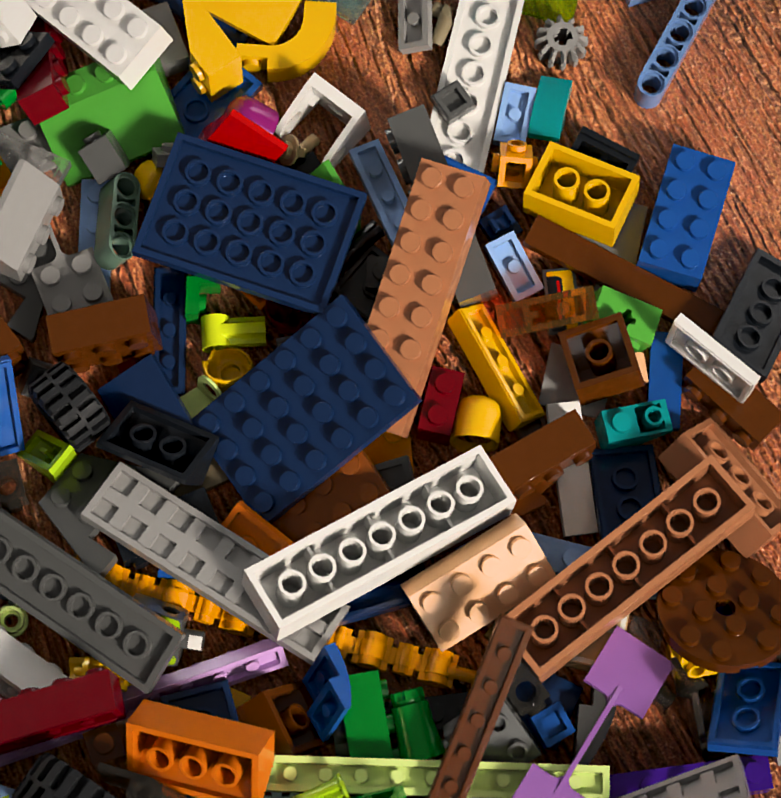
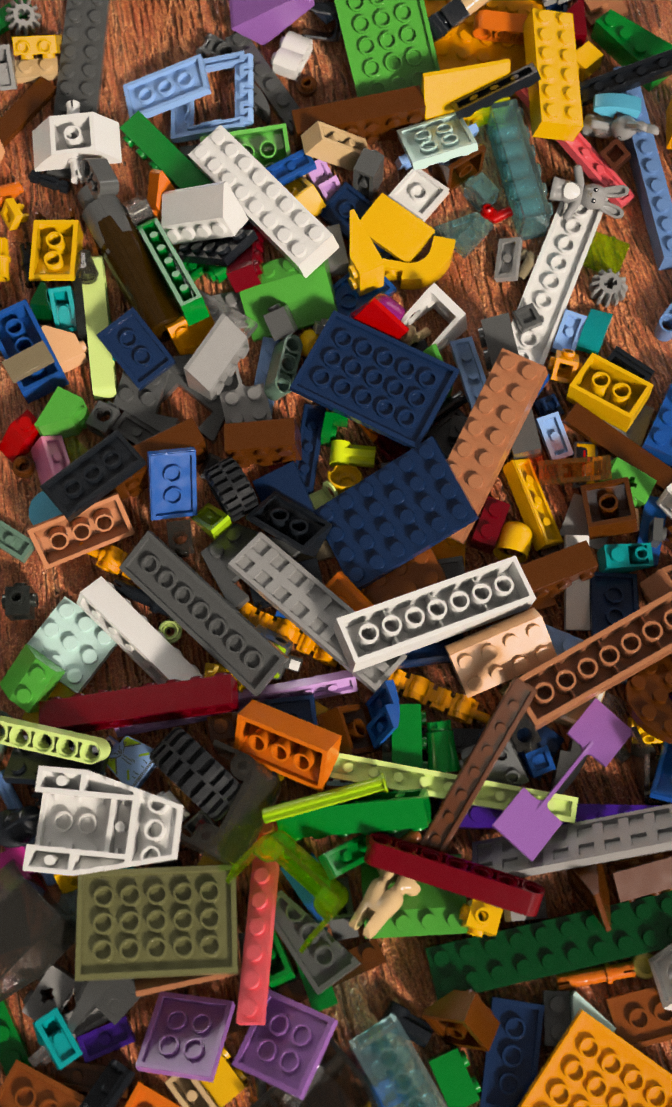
camera: 15 degrees right, 0 degrees up
(671, 382) = (656, 532): none -> dark grey plate

